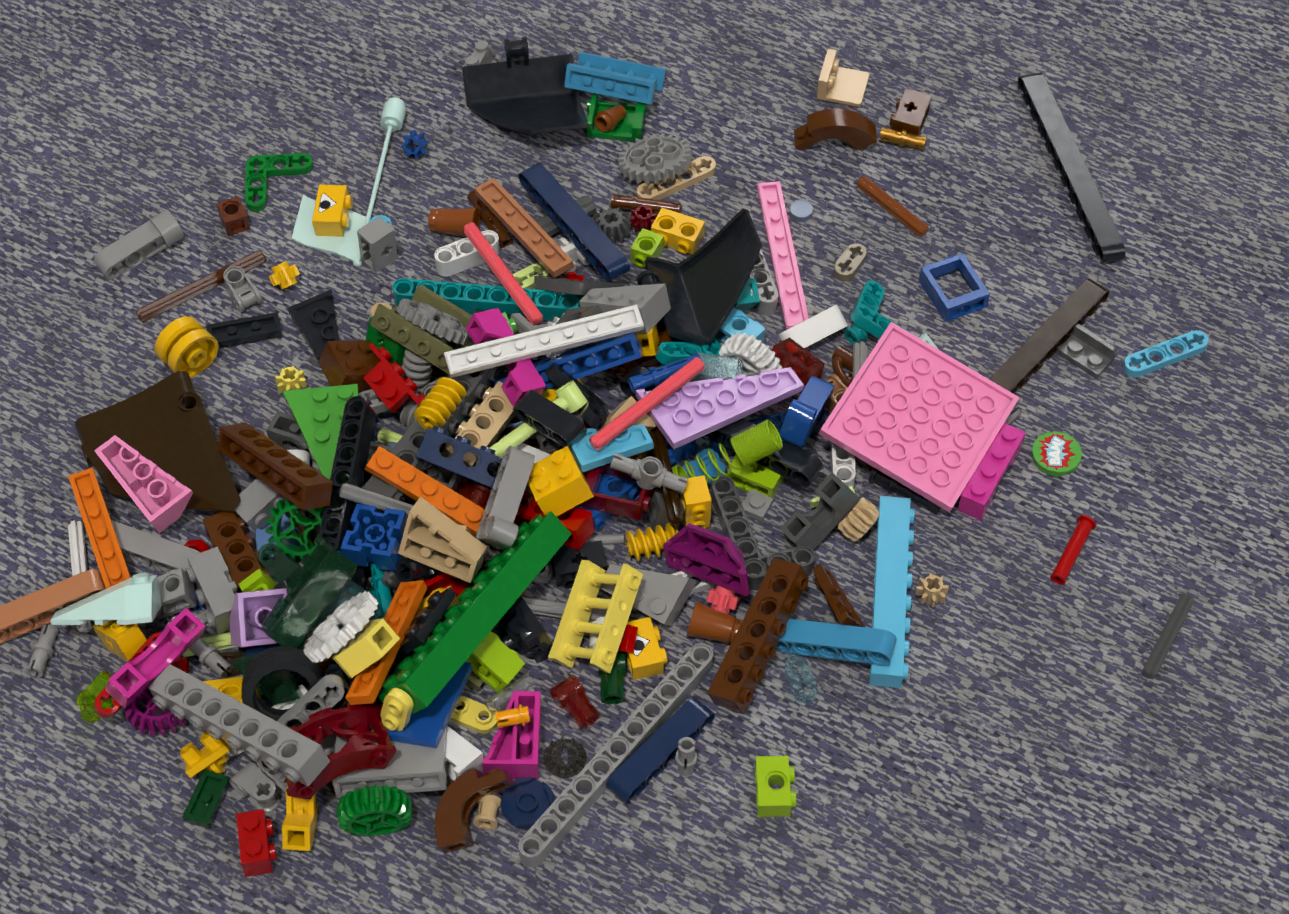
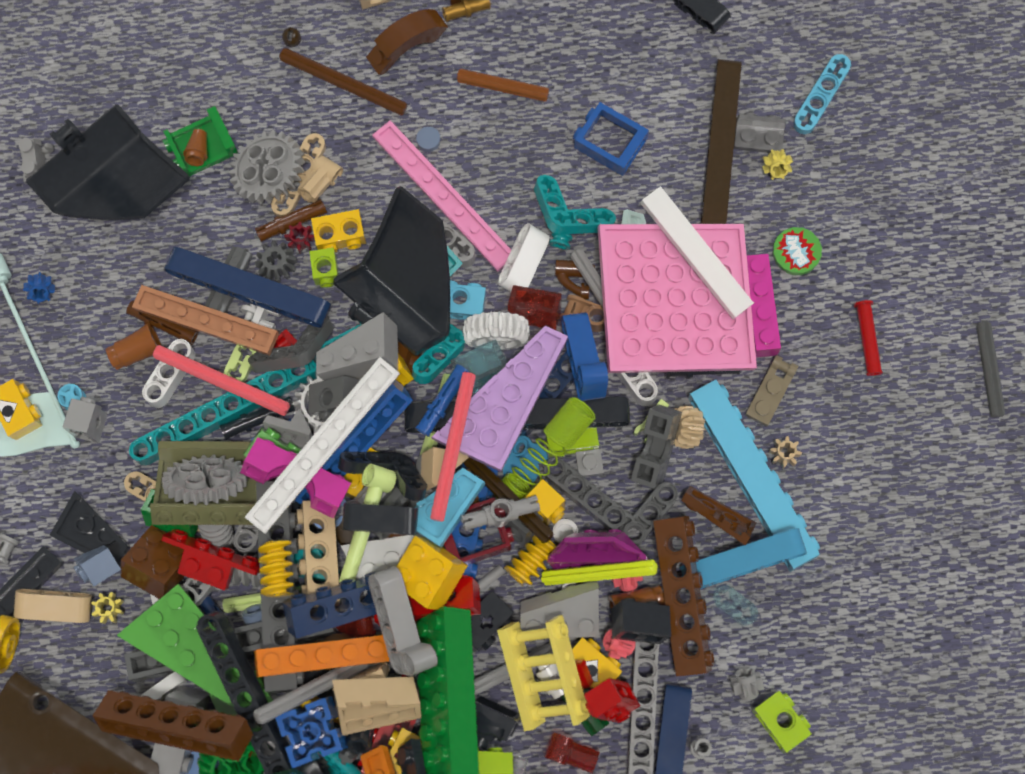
camera: 30 degrees left, 20 degrees up
(251, 353) = (52, 605): none -> tan beam
(284, 275) = (20, 503): yellow gear -> none
(305, 341) = (96, 565): none -> sand blue slope
(615, 78) = (177, 116): dark azure fence -> none
(636, 667) = (611, 701): none -> red brick
(677, 639) = (616, 647): none -> coral gear
(695, 187) = (322, 175): none -> tan piece
(701, 572) = (599, 572): none -> neon yellow axle
(706, 626) = (641, 621): none -> black brick
(747, 88) = (296, 37): none -> dark brown hinge
(763, 137) = (343, 81): none -> reddish brown axle
(765, 739) = (747, 683): none -> light grey gear
(854, 264) = (500, 167): dark tan beam -> none
(955, 541) = (771, 391): none -> dark tan plate
(960, 391) = (696, 252): none -> white tile
(1093, 379) = (777, 164): none -> light yellow gear

